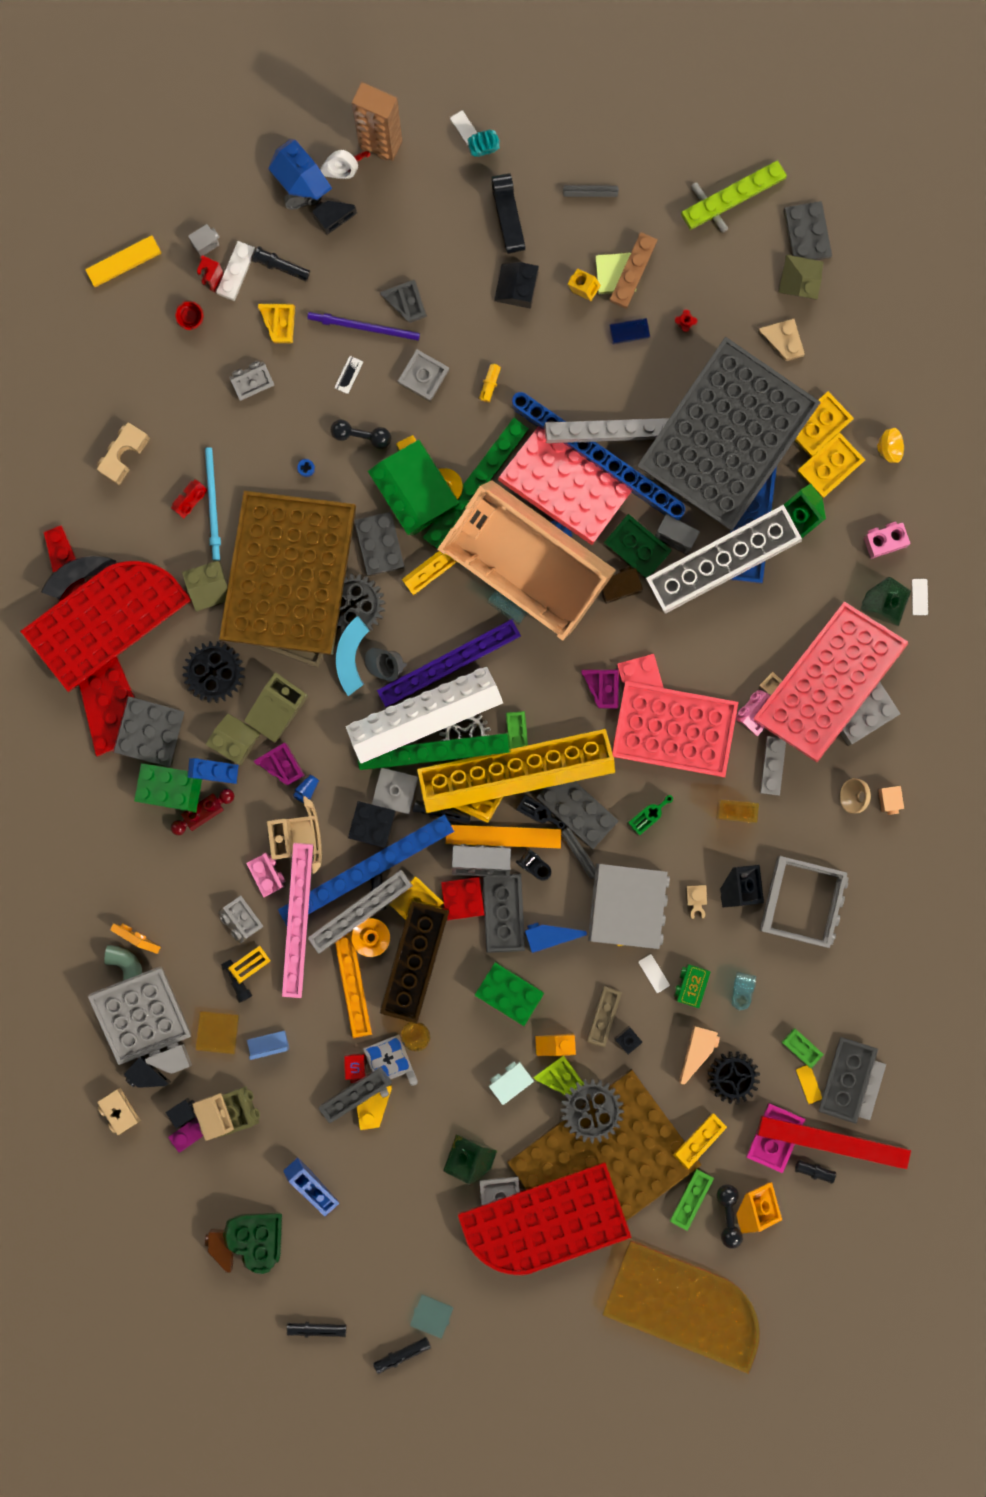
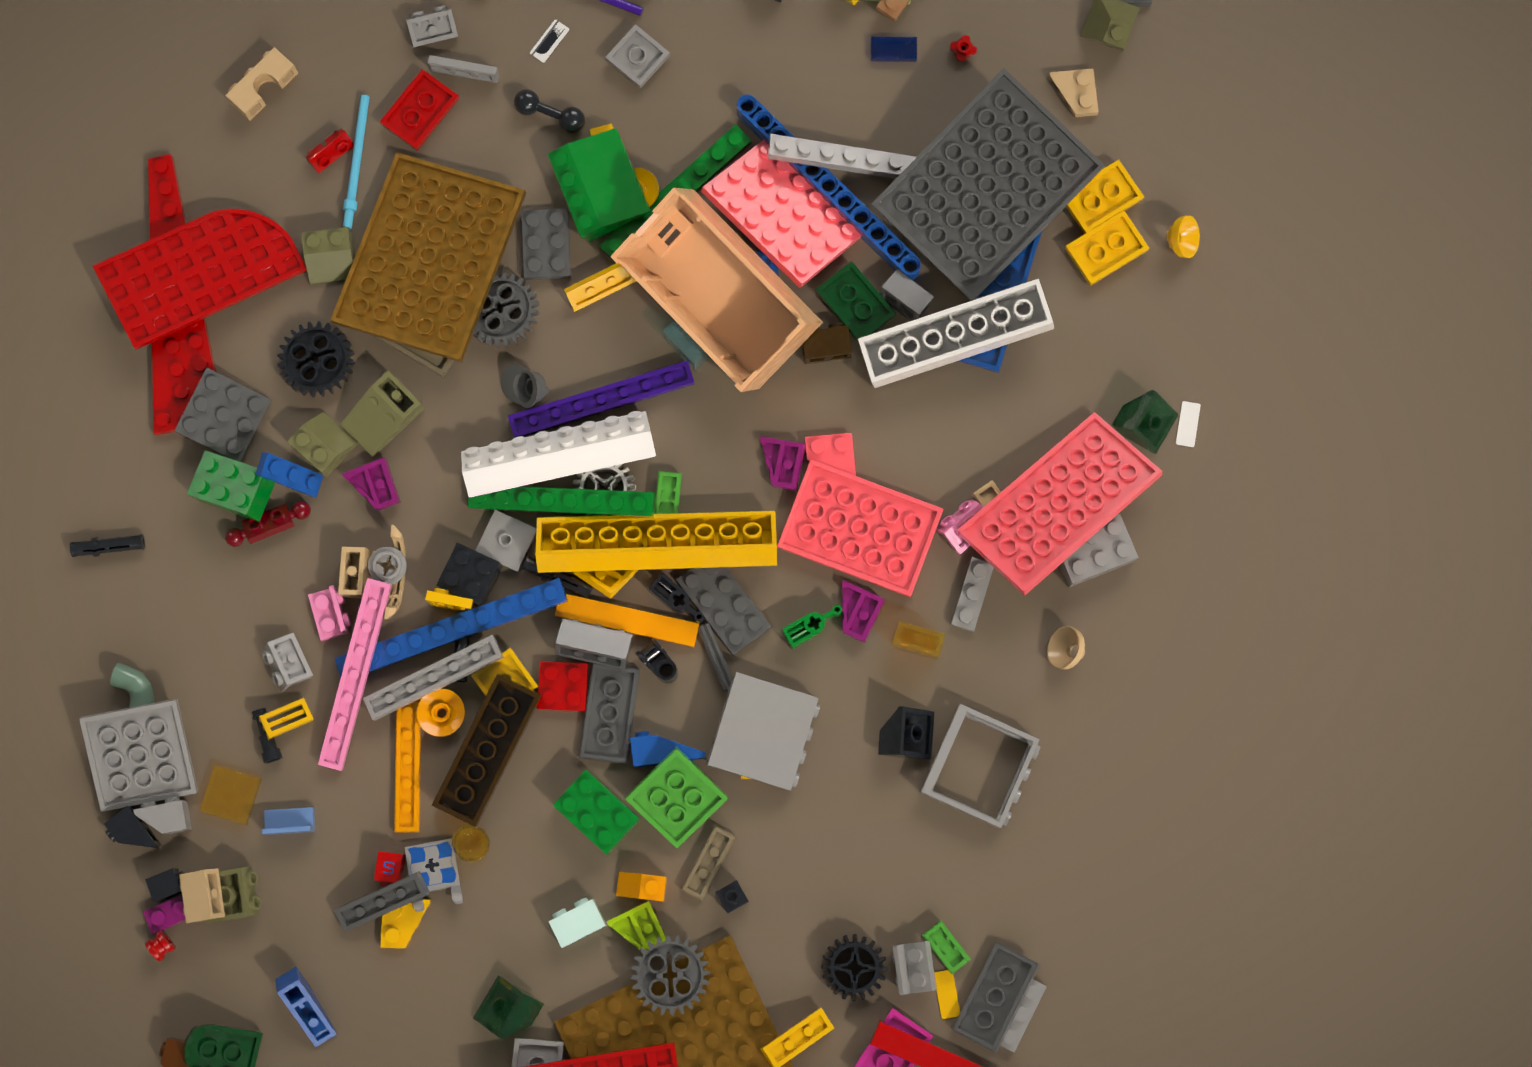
camera: 10 degrees right, 5 degrees down
(70, 855) = (96, 547): none -> black pin
(74, 570) = (172, 209): black tile -> none
(116, 1101) = (98, 877): tan brick -> none
(135, 938) = (153, 660): light orange wing -> none
(187, 1161) = (160, 946): none -> red wheel
(255, 451) = (419, 109): none -> red plate
(284, 411) = (463, 69): none -> light grey tile
(299, 822) = (382, 555): none -> light grey gear
(306, 788) = (399, 518): blue cone -> none
(309, 472) = (473, 133): blue bush -> none
(346, 655) = (479, 365): medium azure tile -> none
(355, 847) = (443, 599): none -> yellow wing
(490, 383) = (715, 79): yellow axle -> none
(570, 970) = (676, 797): none -> bright green plate
(654, 973) = (780, 821): white sticker -> none
(686, 796) = (859, 611): none -> magenta wing
(692, 985) = (824, 844): green brick -> none
(697, 897) = (849, 737): tan plate -> none
(699, 1049) = (818, 923): light nougat slope -> none
(743, 986) = (887, 858): clear light blue piece -> none
(780, 1069) = (914, 967): none -> light grey bracket
(806, 510) = (1066, 294): green slope -> none
(888, 543) = (1160, 353): bright pink brick -> none
(891, 800) = (1109, 661): light nougat brick -> none

